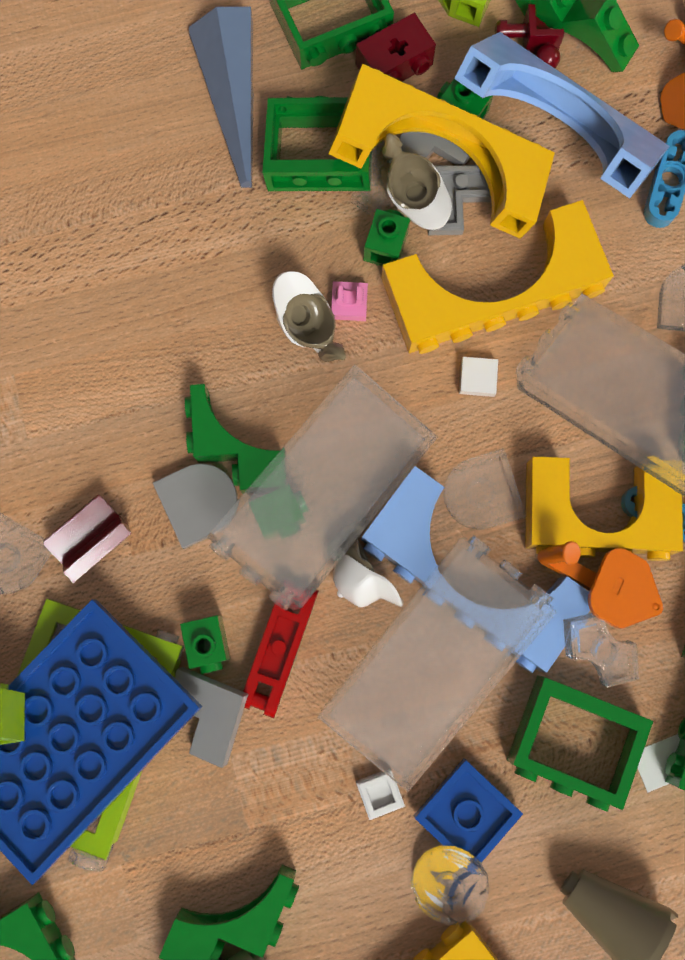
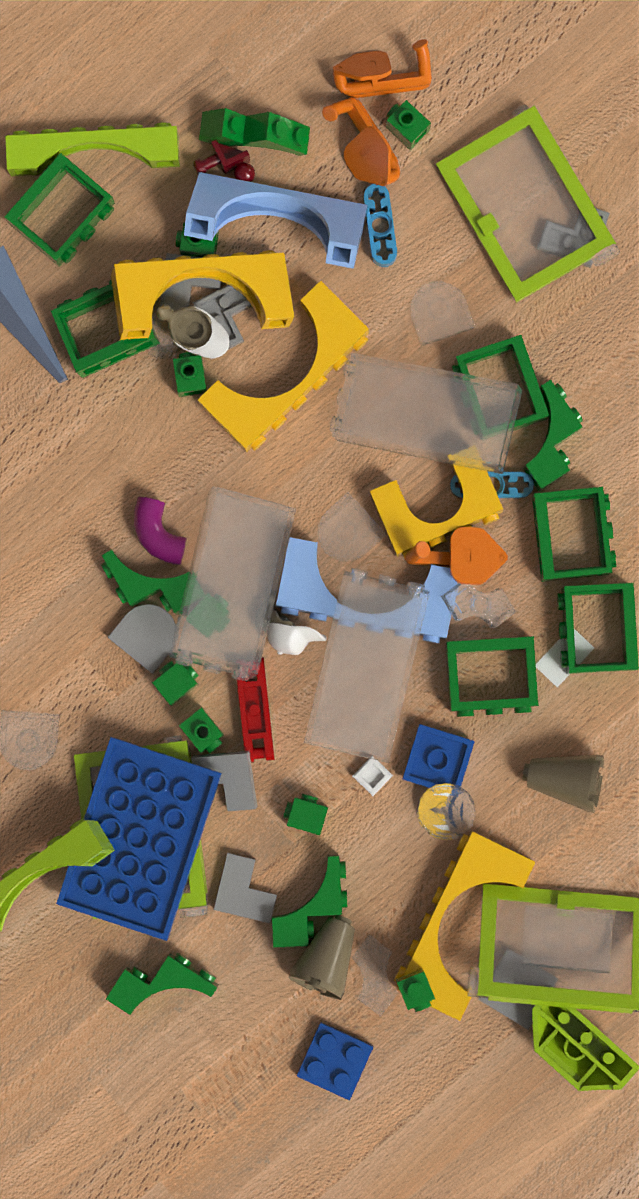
camera: 20 degrees left, 5 degrees up
(87, 537) = (82, 698): panel -> none
(150, 864) = (236, 896): none -> light grey tile
(202, 571) = (175, 681): none -> green brick
(260, 391) = (152, 534): none -> magenta cylinder
(279, 805) = (306, 814): none -> green brick
(305, 315) = (160, 464): dark tan hair -> none
(349, 301) = (184, 434): bright pink tile -> none
(398, 49) = (129, 210): dark red brick -> none
(478, 376) = (305, 446): white tile -> none

